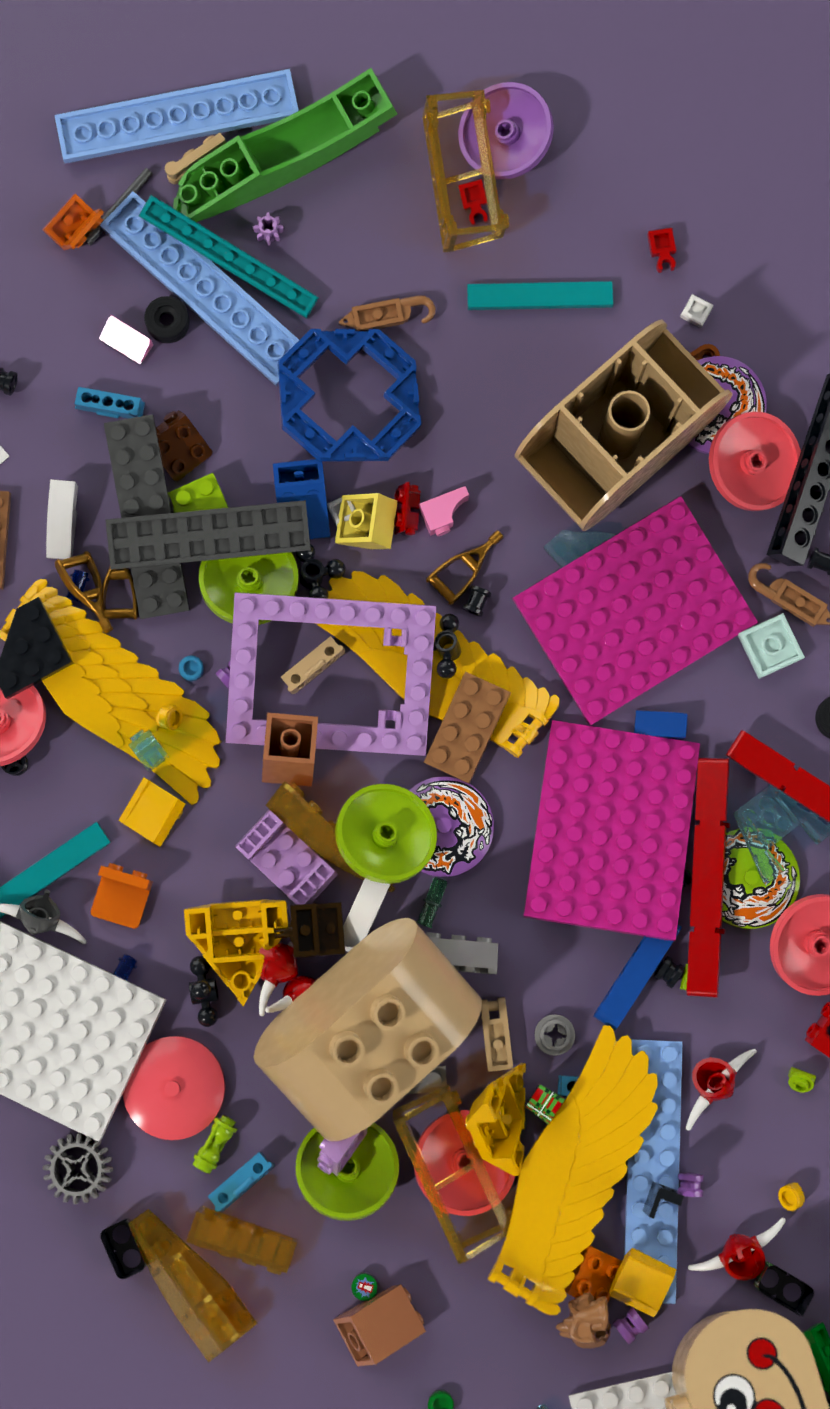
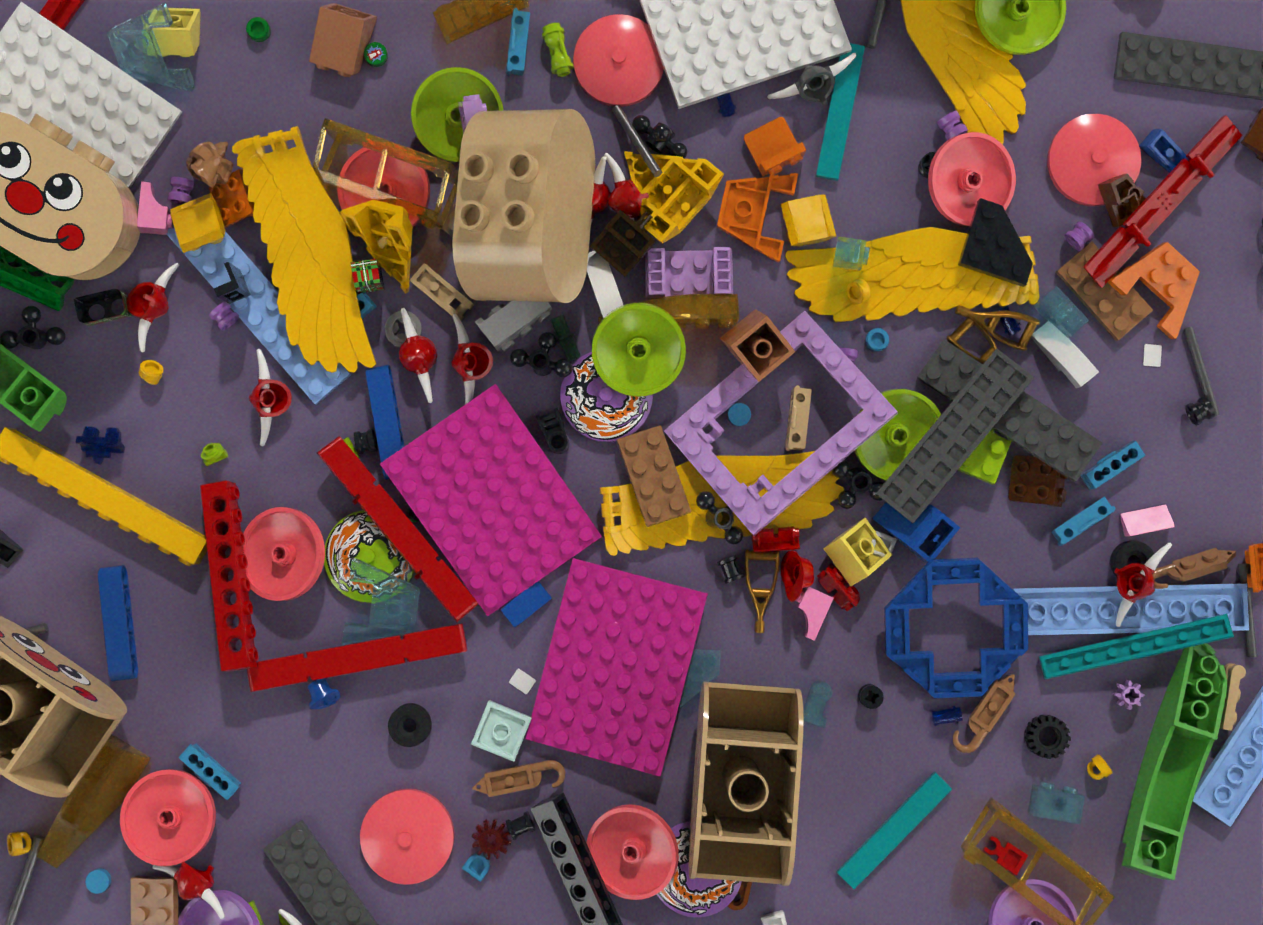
camera: 140 degrees right, 5 degrees up
(31, 553) = (1061, 312): none -> clear light blue brick
(126, 274) = (1194, 566): none -> medium nougat plate
(173, 384) = (1083, 521): none -> dark azure piece
(181, 299) = (1137, 581): none -> red helmet
(193, 867) = (745, 209): none -> orange wing
(225, 1004) = (637, 141): none -> flat silver bar
(339, 198) = (1101, 764): none -> yellow tile
(354, 712) = (739, 414): none -> dark azure tile
(358, 241) = (1060, 742): none -> black tyre
(398, 190) = (1067, 810): none -> clear light blue brick
(415, 583) = (768, 541): none -> red hinge
(418, 339) = (947, 716): none -> clear blue pin
(430, 548) = (796, 574): none -> red piece
(450, 913) = (547, 342): none -> black piece
(461, 412) = (868, 692): none -> black wheel
(508, 441) = (815, 703): none -> clear light blue leg
(511, 839) = (553, 429): none -> black piece
(525, 956) = (470, 360): none -> red helmet
(563, 1001) = (417, 354): none -> red helmet
(673, 1327) = (151, 215): none -> bright pink arch
(719, 669) = (522, 681): none -> white sticker

